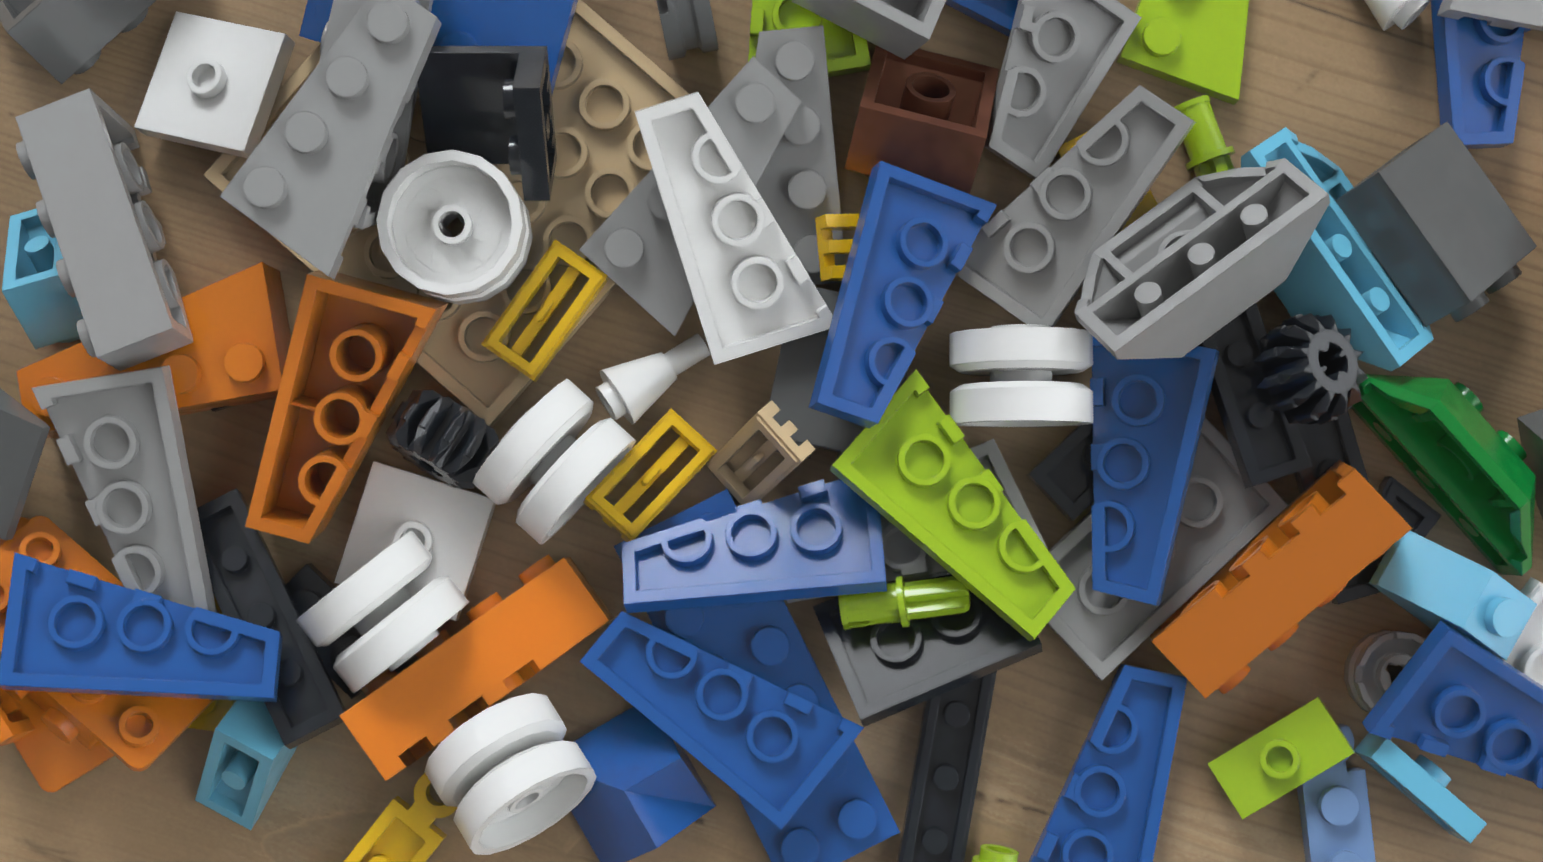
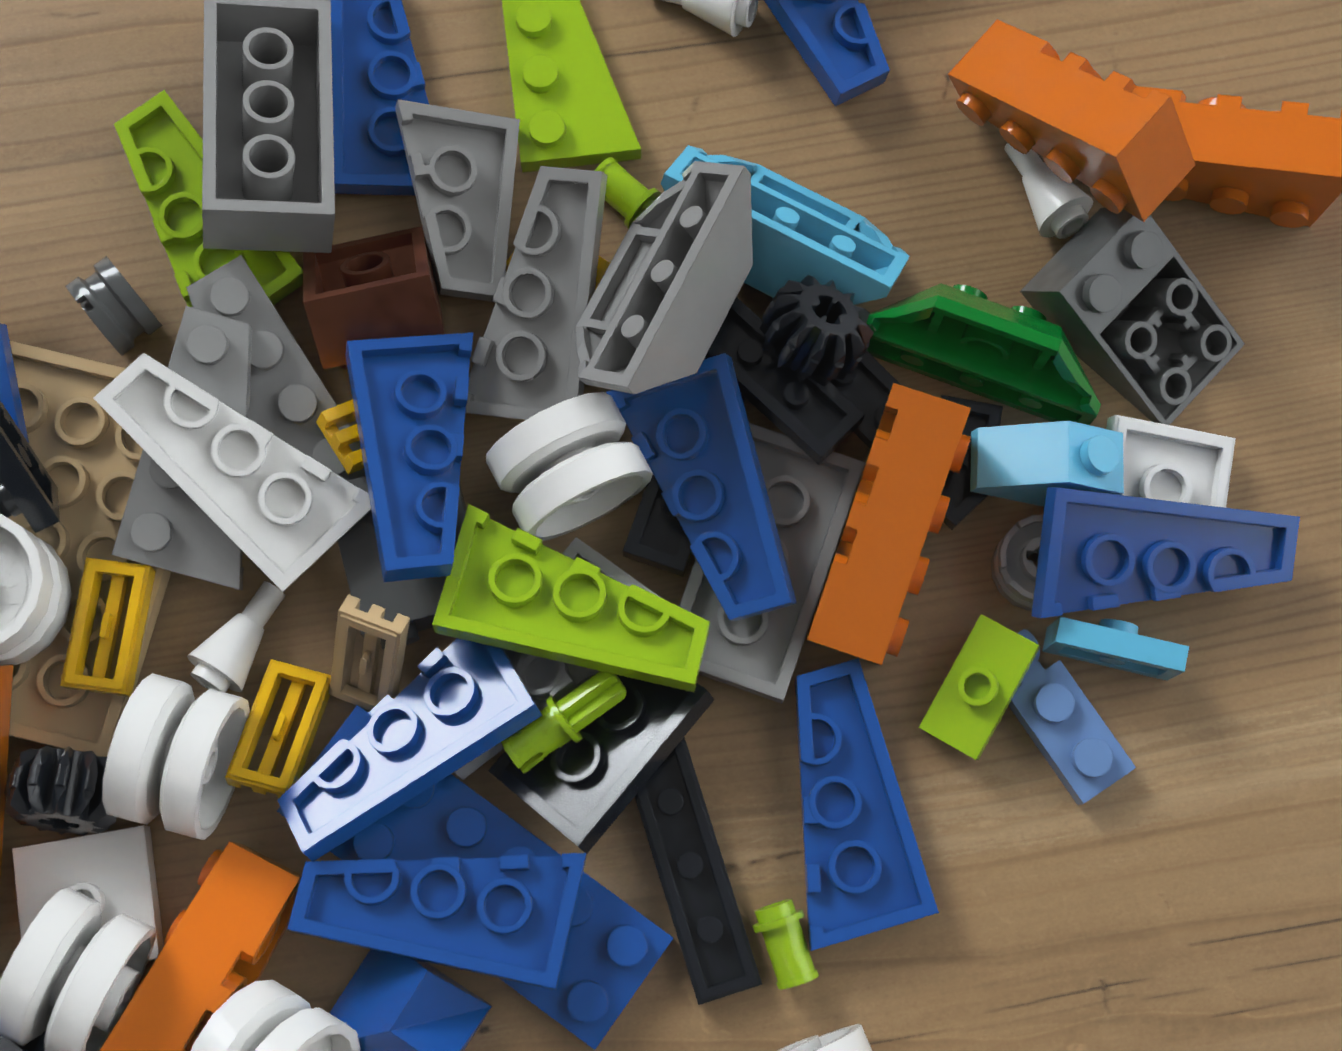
camera: 30 degrees left, 10 degrees down
(1438, 227) = (861, 163): dark grey brick -> none

